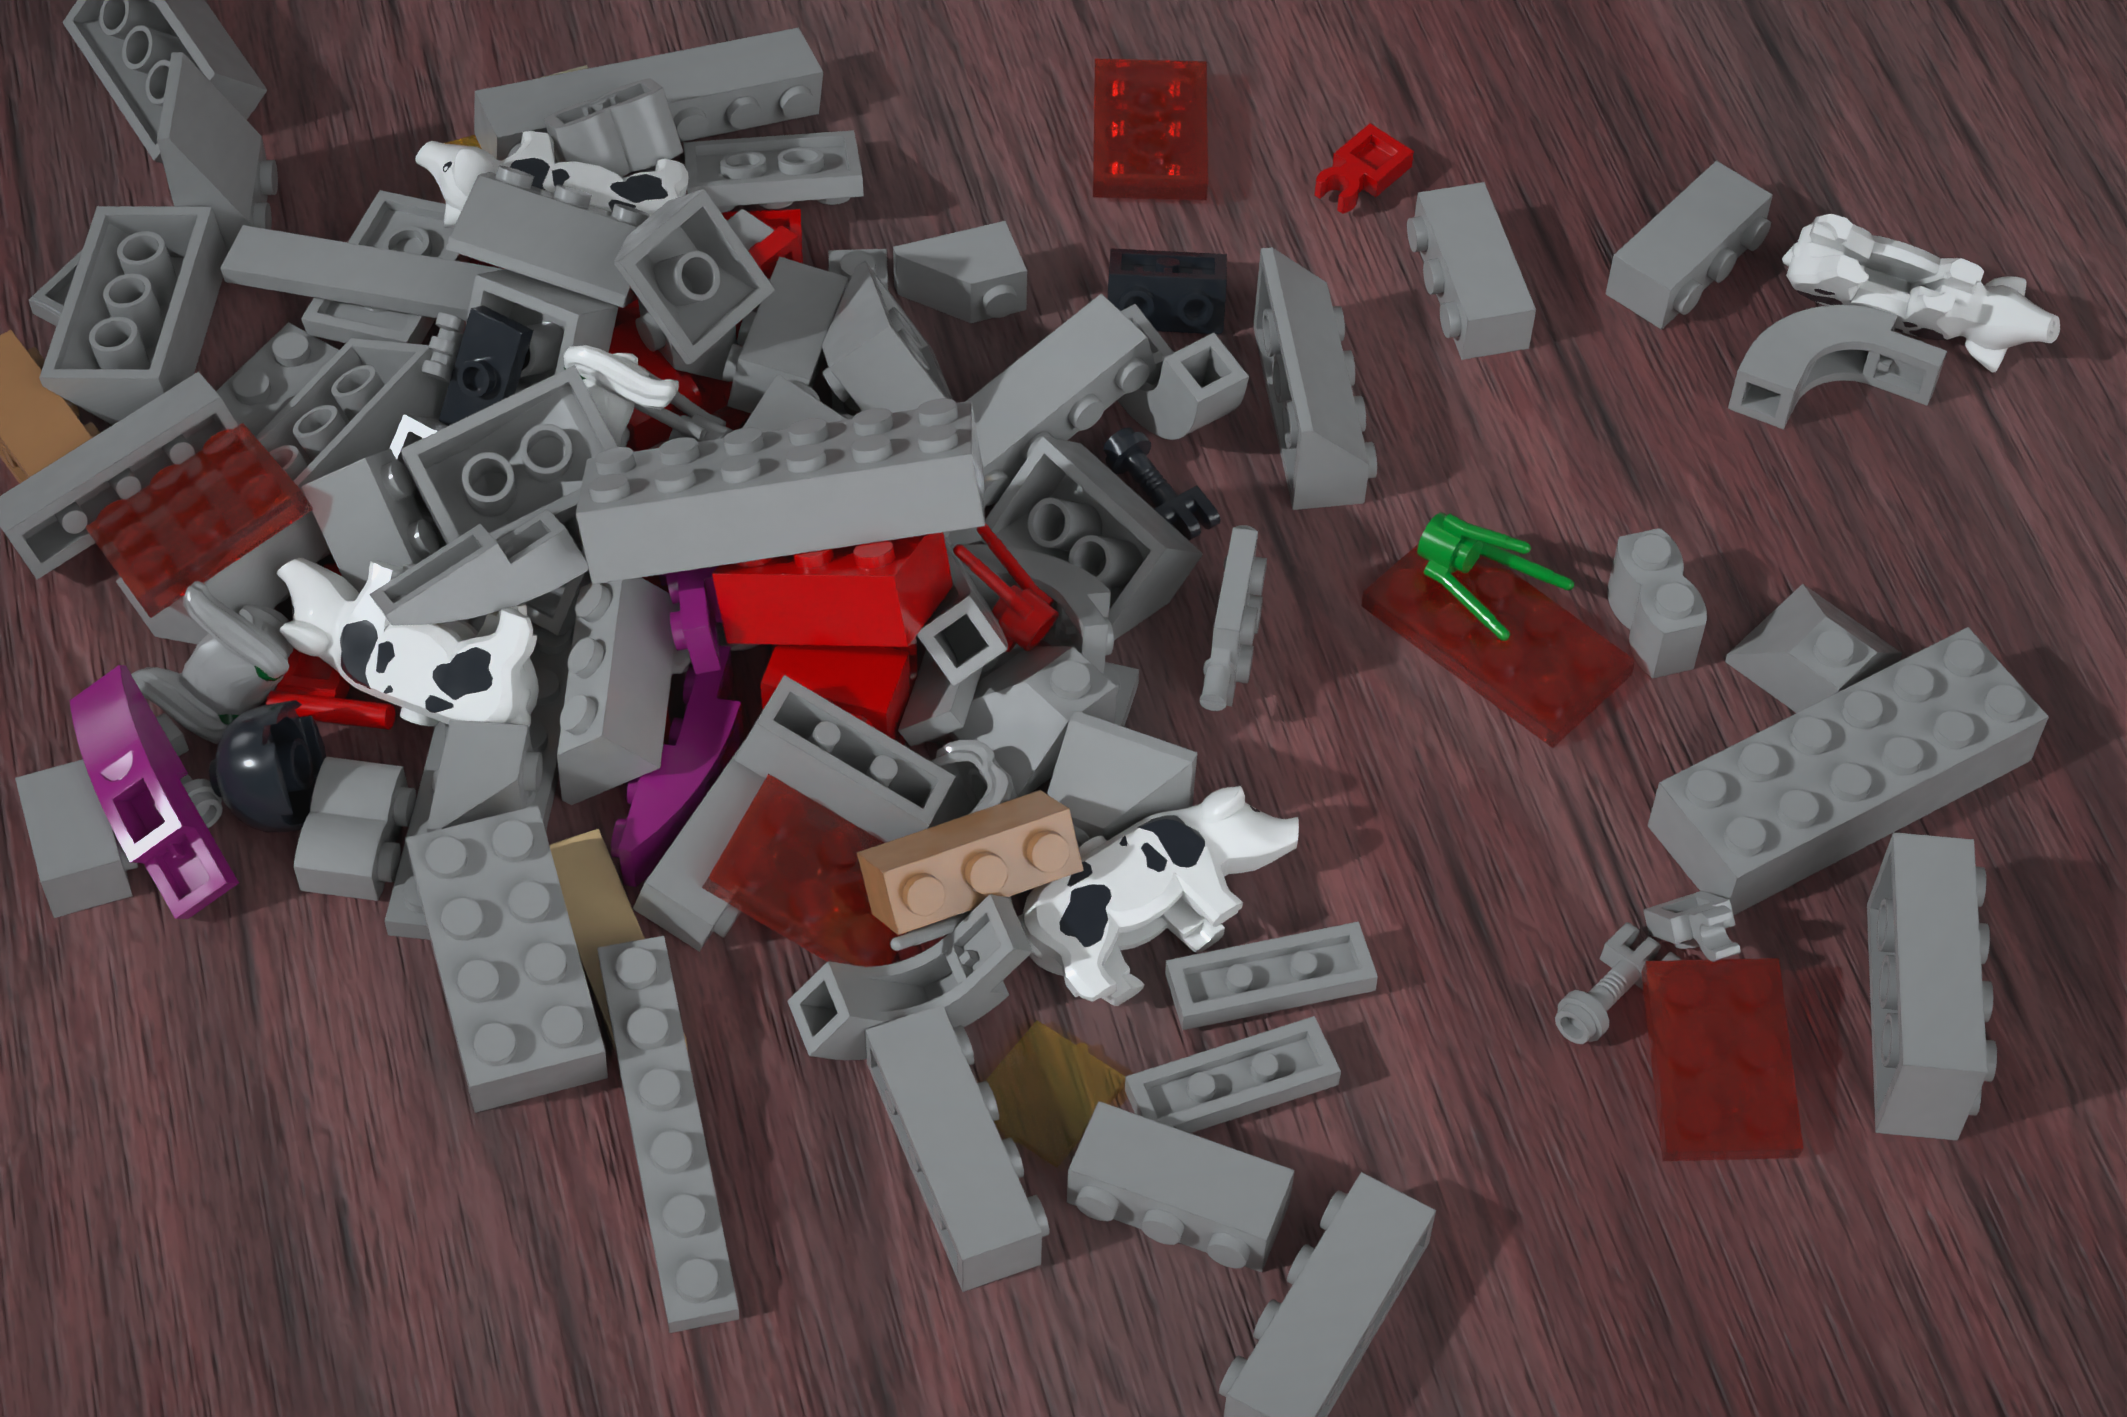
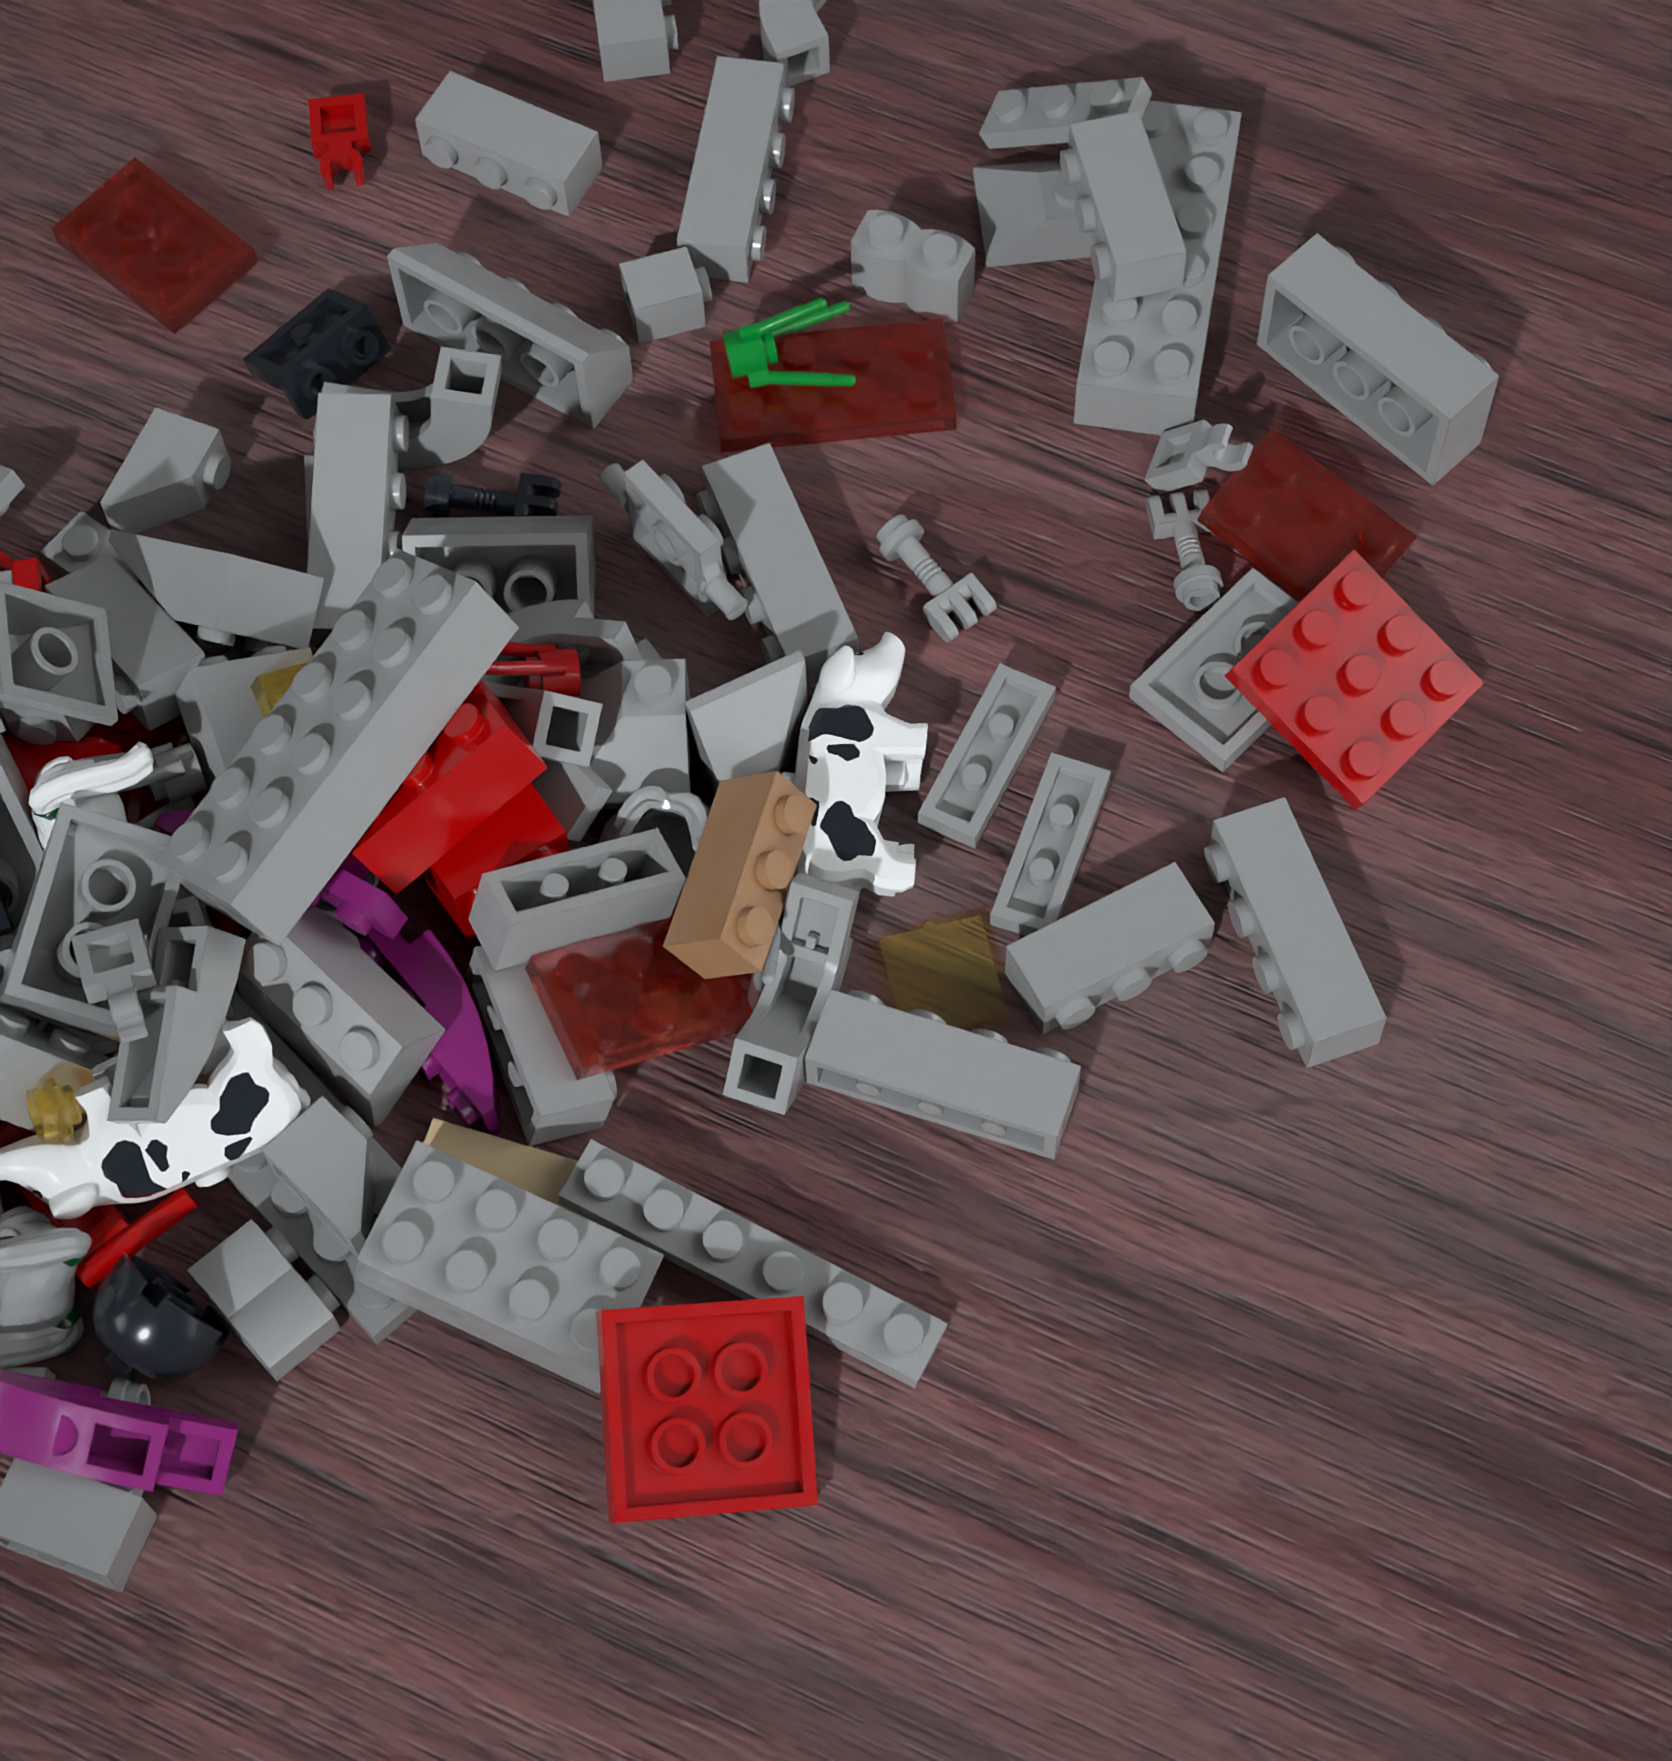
camera: 45 degrees left, 10 degrees up
(352, 561) = (53, 1110): none -> clear yellow plate
(478, 496) = (115, 967): none -> light grey plate
(503, 1177) = (706, 1408): none -> red plate
(1292, 702) = (775, 559): none -> light grey brick
(1403, 777) = (901, 540): none -> light grey hinge
(1450, 461) = (665, 294): none -> light grey brick
(1535, 1102) = (1188, 682): none -> light grey plate
(1610, 1193) = (1354, 680): none -> red plate
(1611, 424) = (734, 167): none -> light grey brick
(1843, 686) = (1124, 206): none -> light grey brick
(1910, 599) = (1046, 112): none -> light grey plate

